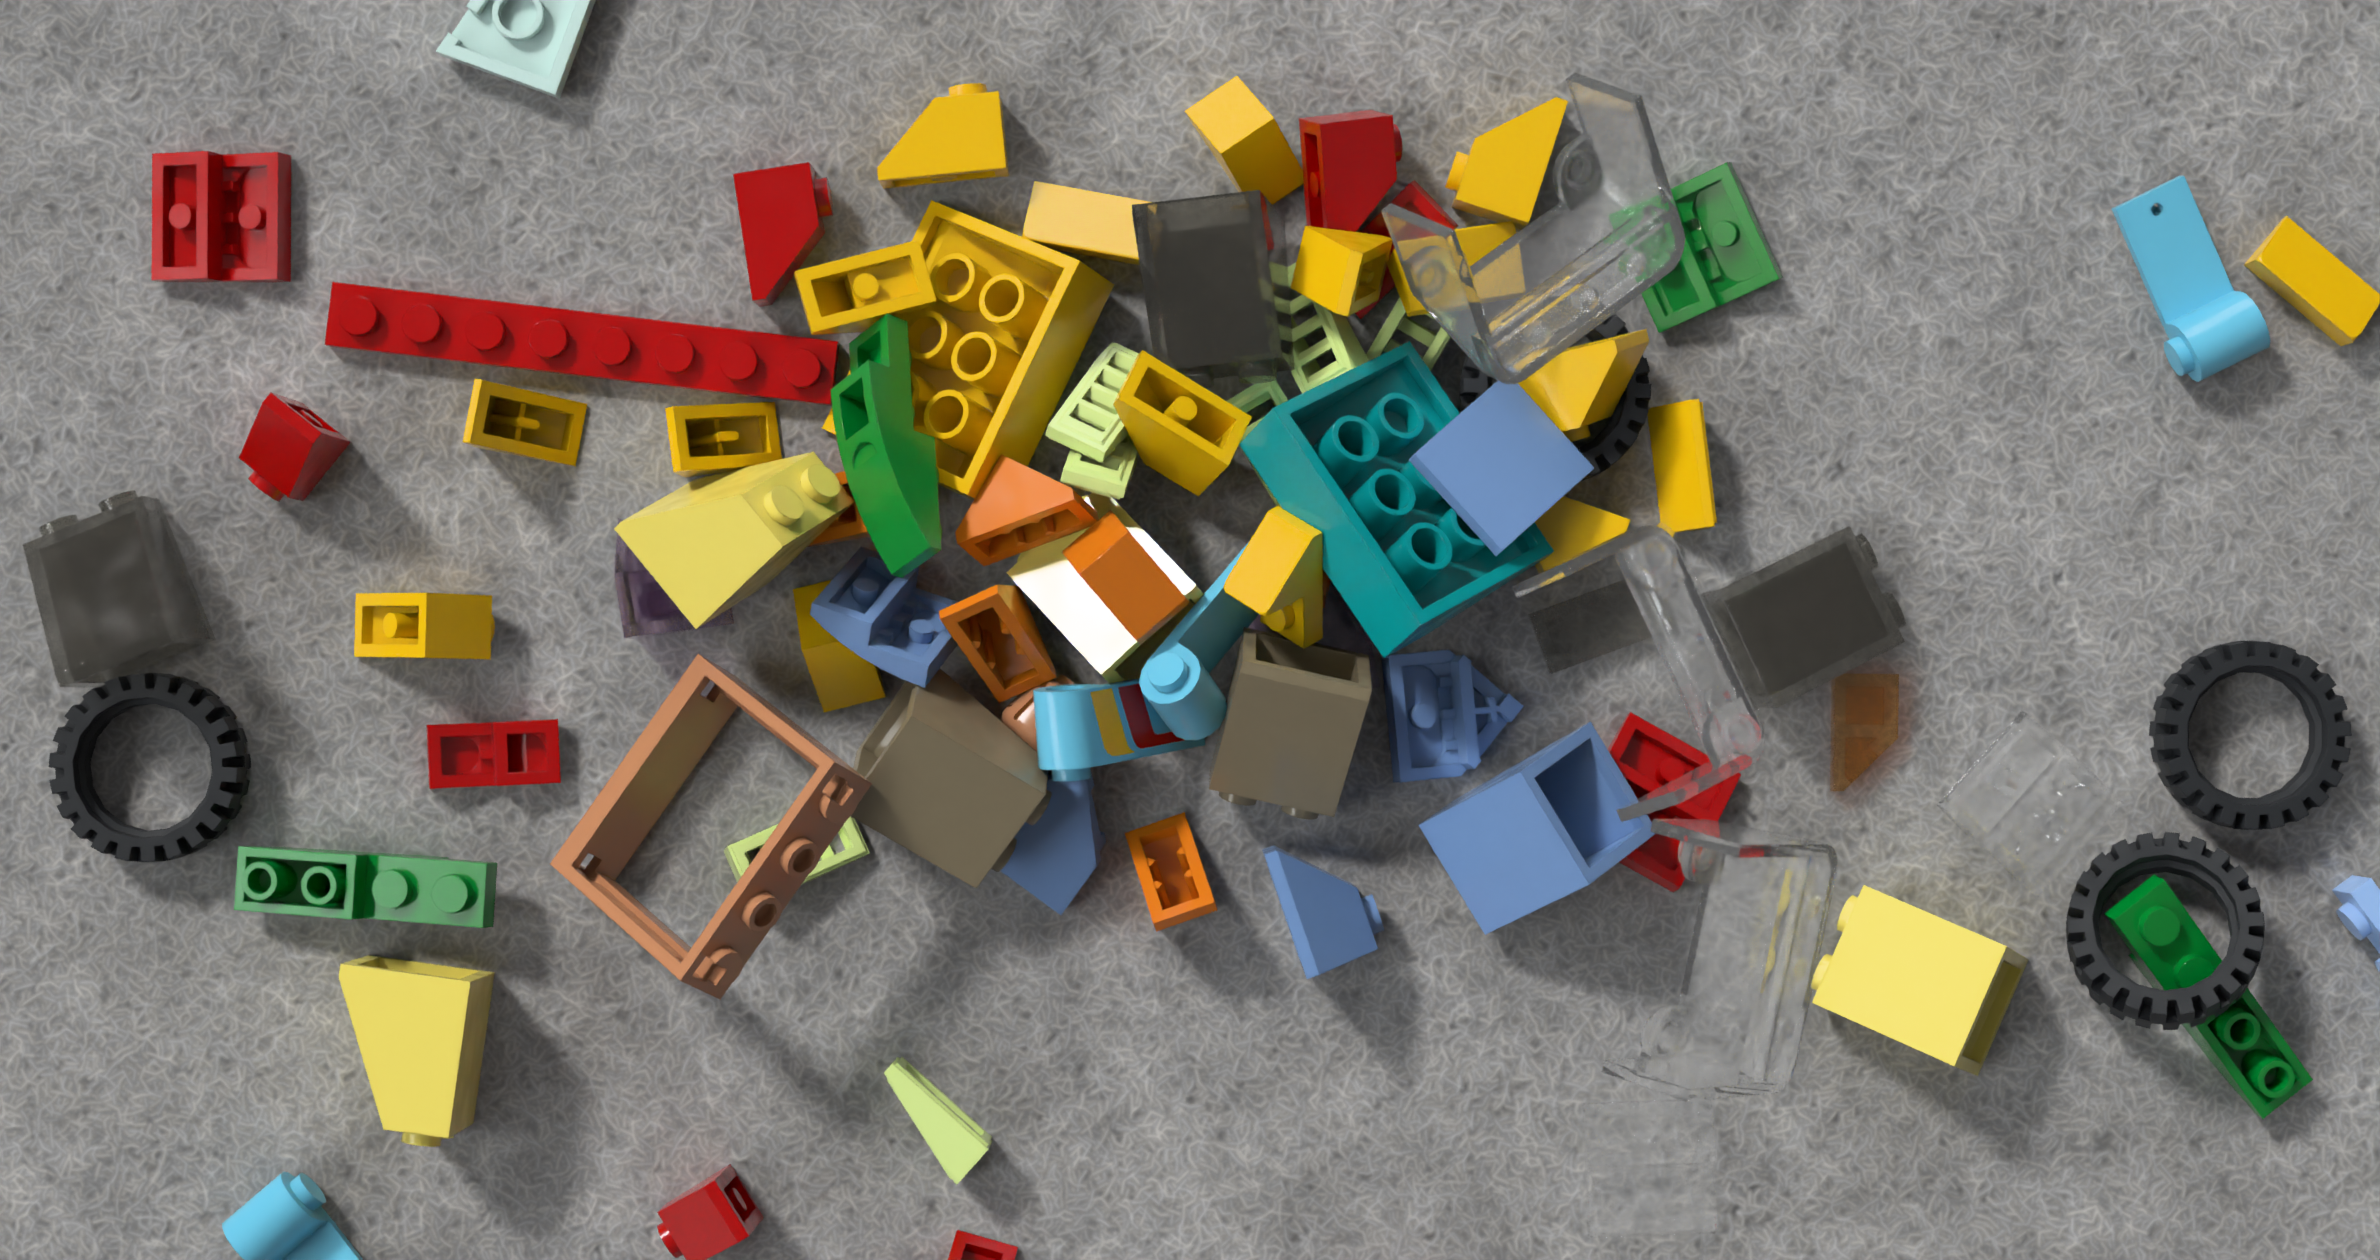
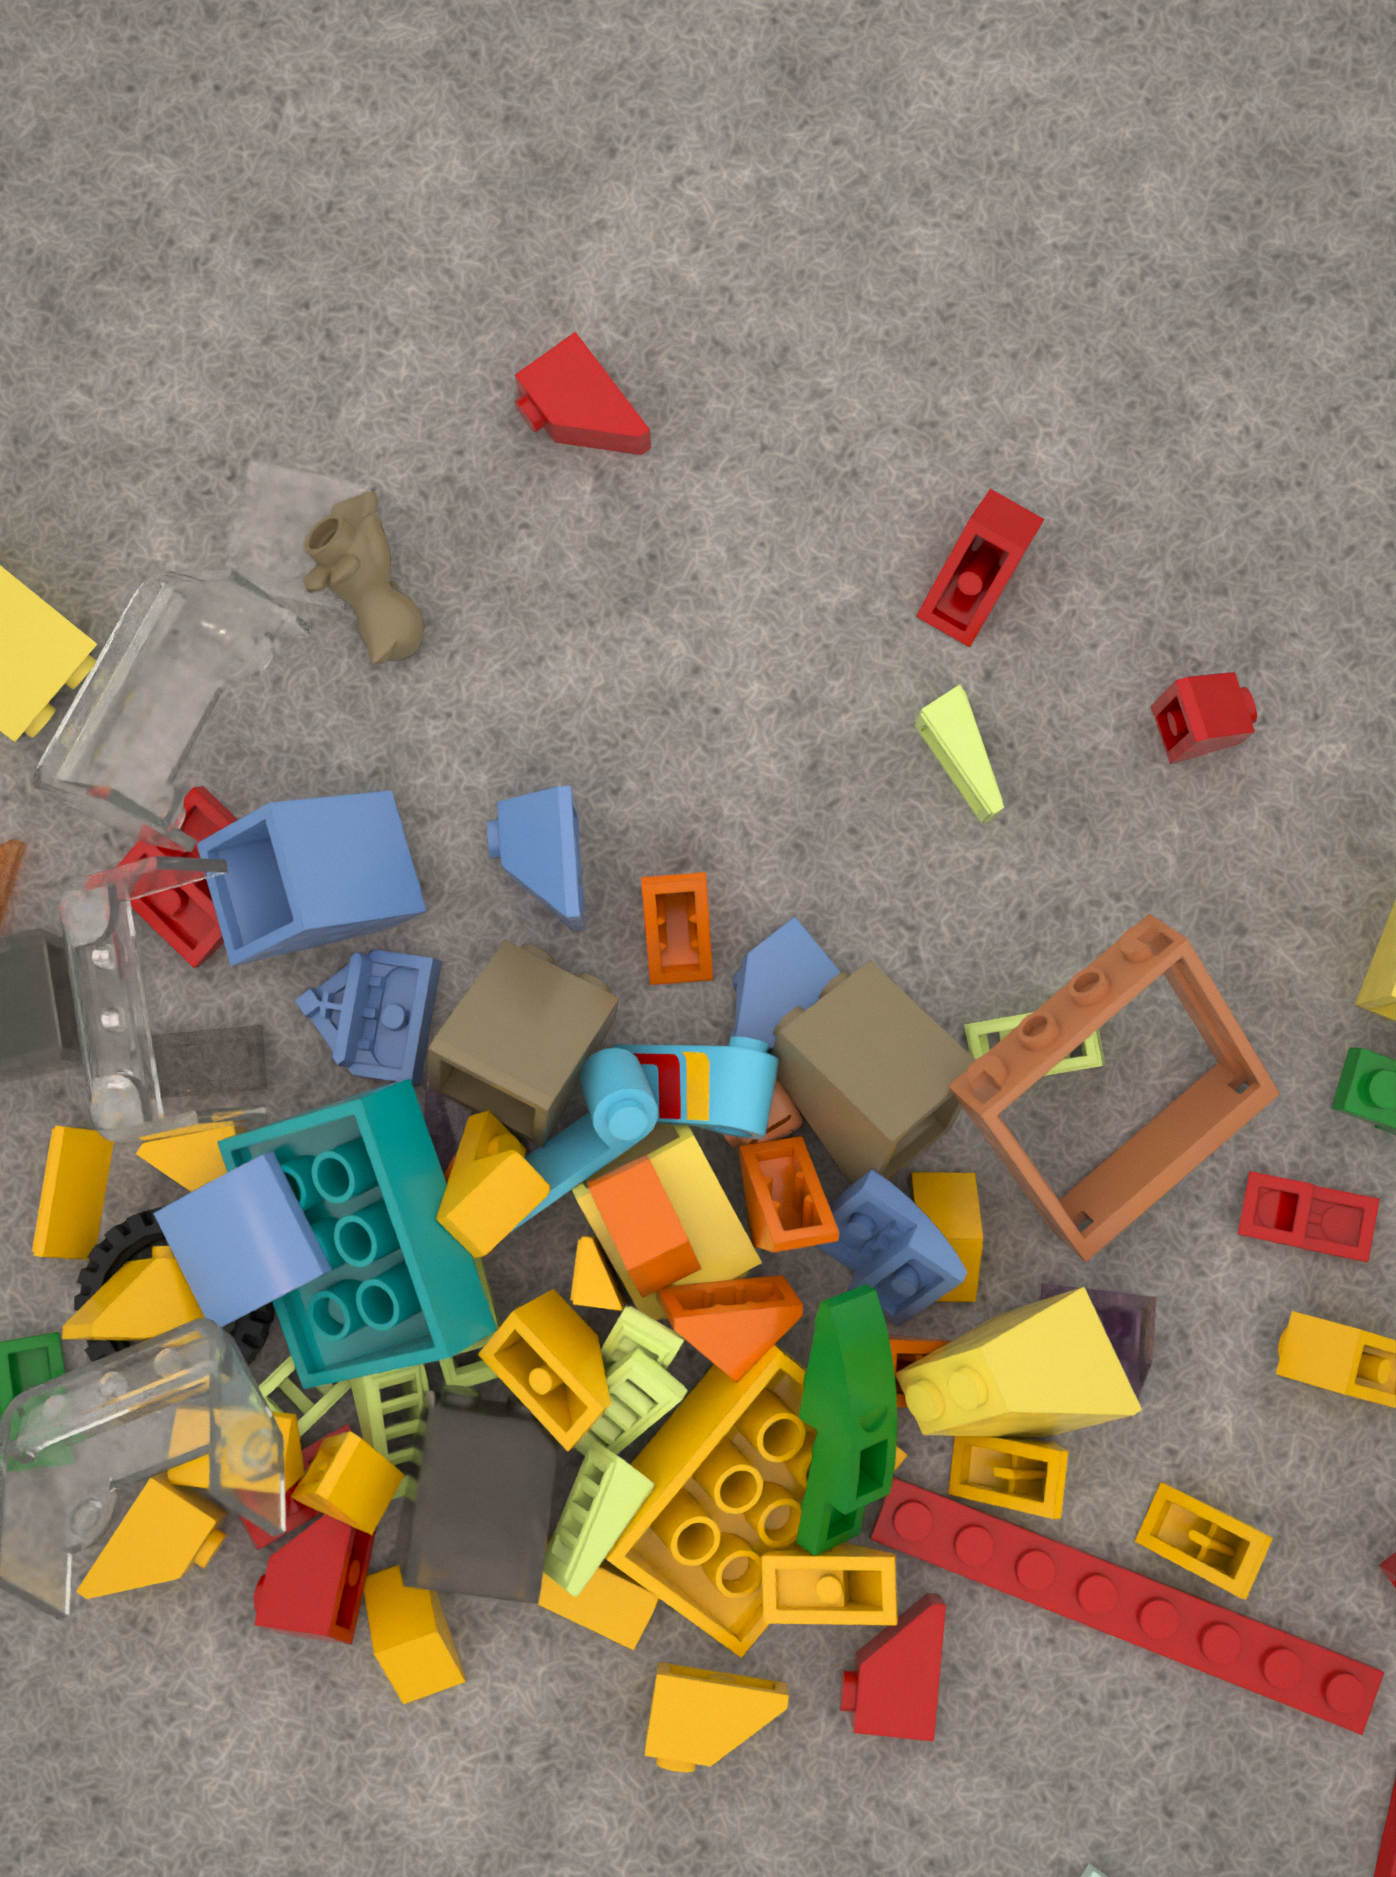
camera: 165 degrees left, 5 degrees down
(1102, 296) = (594, 1517): none -> yellowish green slope
(1160, 515) = (594, 1277): none -> yellow slope
(1577, 1144) = (356, 567): none -> dark tan animal

